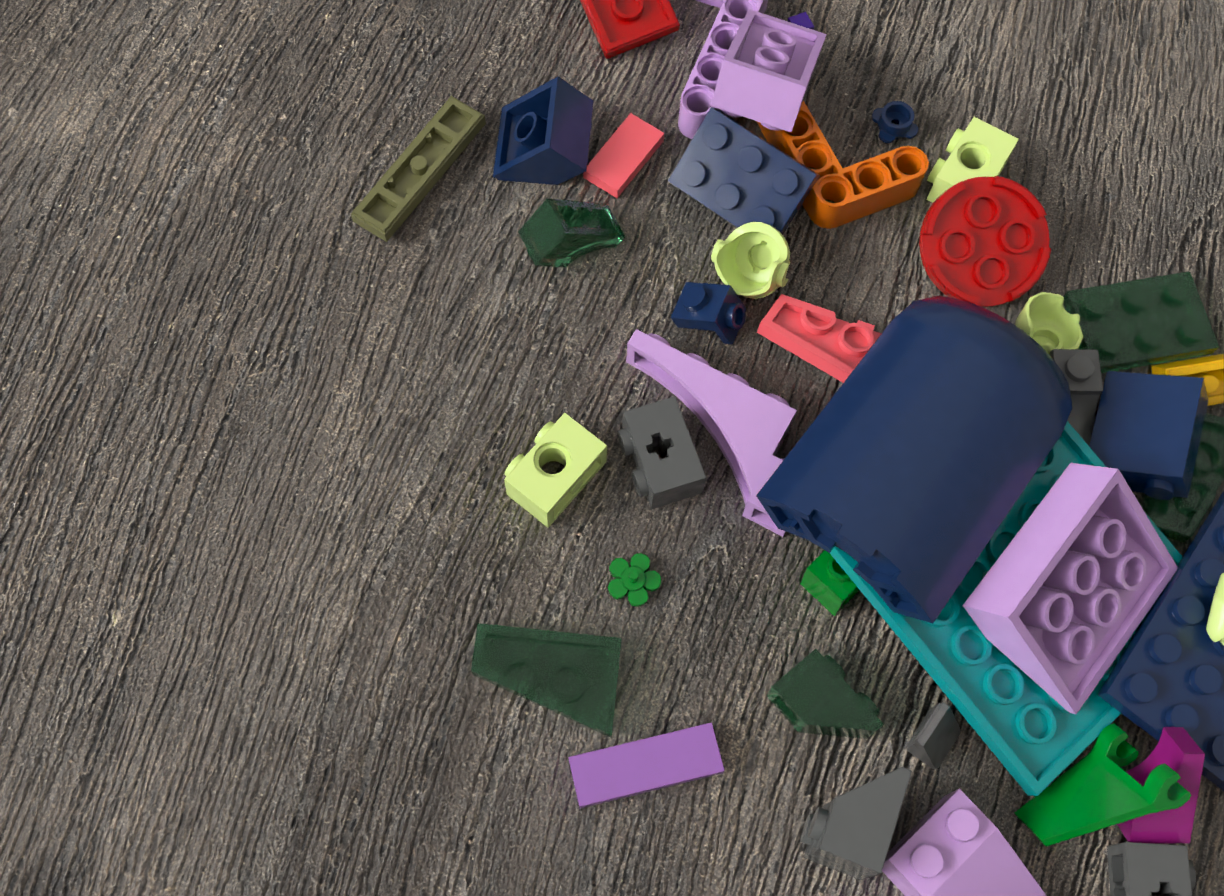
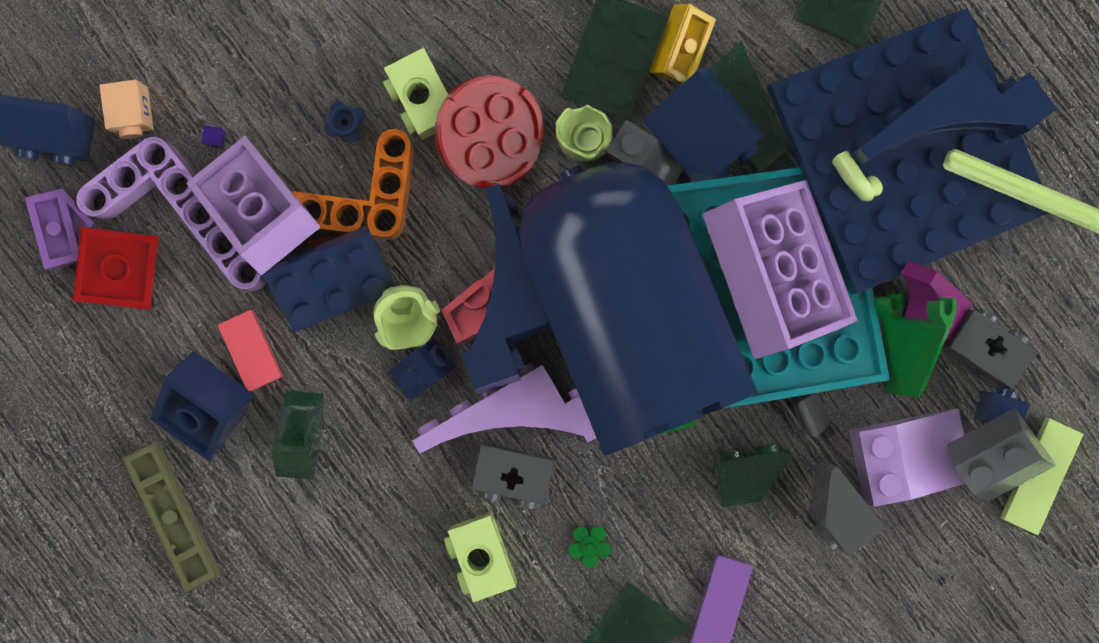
camera: 55 degrees left, 20 degrees up
(824, 345) = (513, 307): none -> dark blue arch

